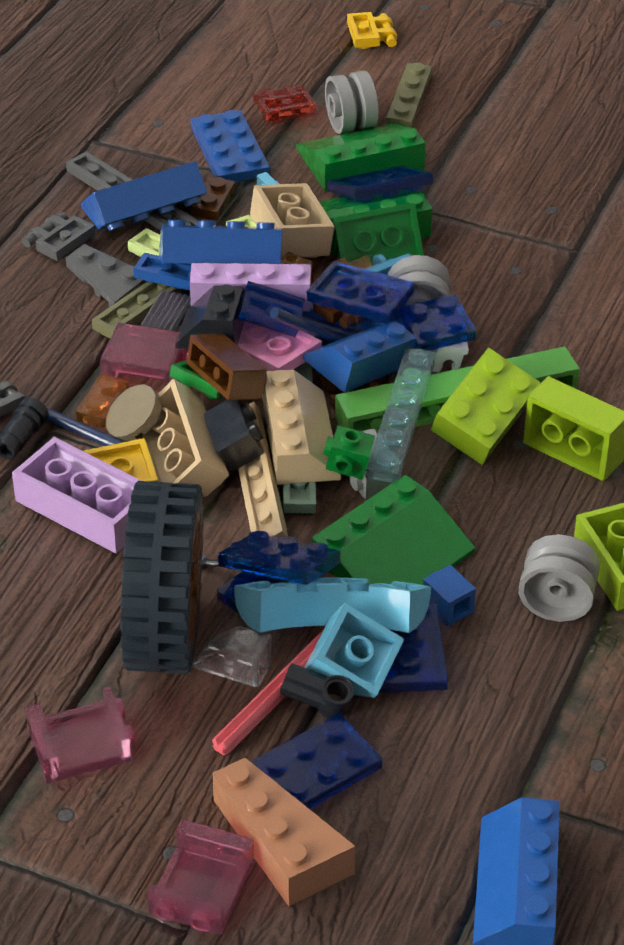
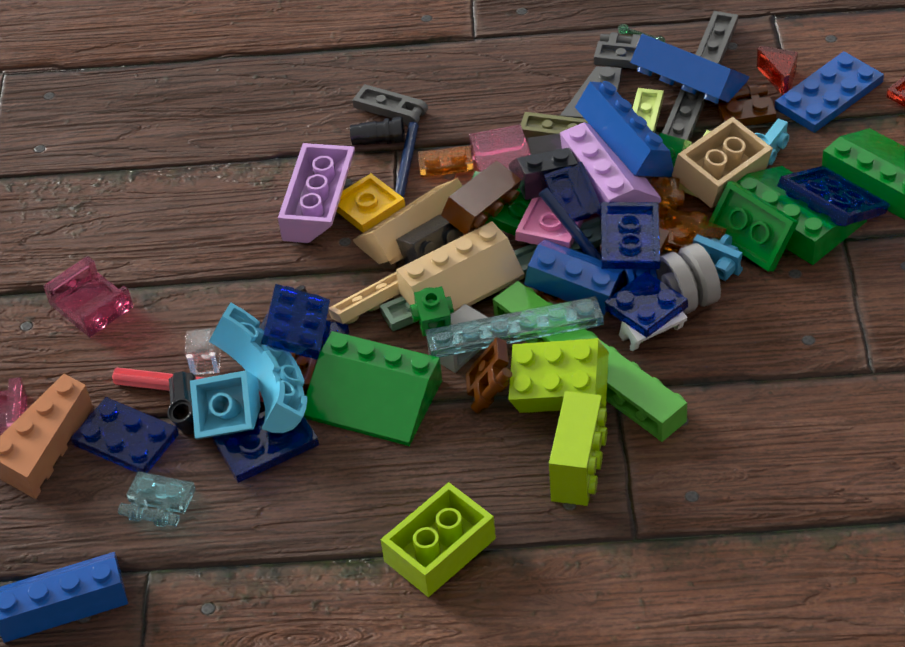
camera: 70 degrees right, 5 degrees up
(21, 227) = (623, 29): none -> clear green hinge
(133, 412) = (427, 180): dark tan tile -> none
(162, 577) = (221, 250): black wheel -> none
(179, 152) = (777, 66): none -> clear red slope
(424, 753) = (158, 492): none -> clear light blue plate
(435, 453) = (488, 375): none -> reddish brown plate
(451, 594) = (333, 443): blue brick -> none
(559, 578) = (374, 500): light grey wheel -> none

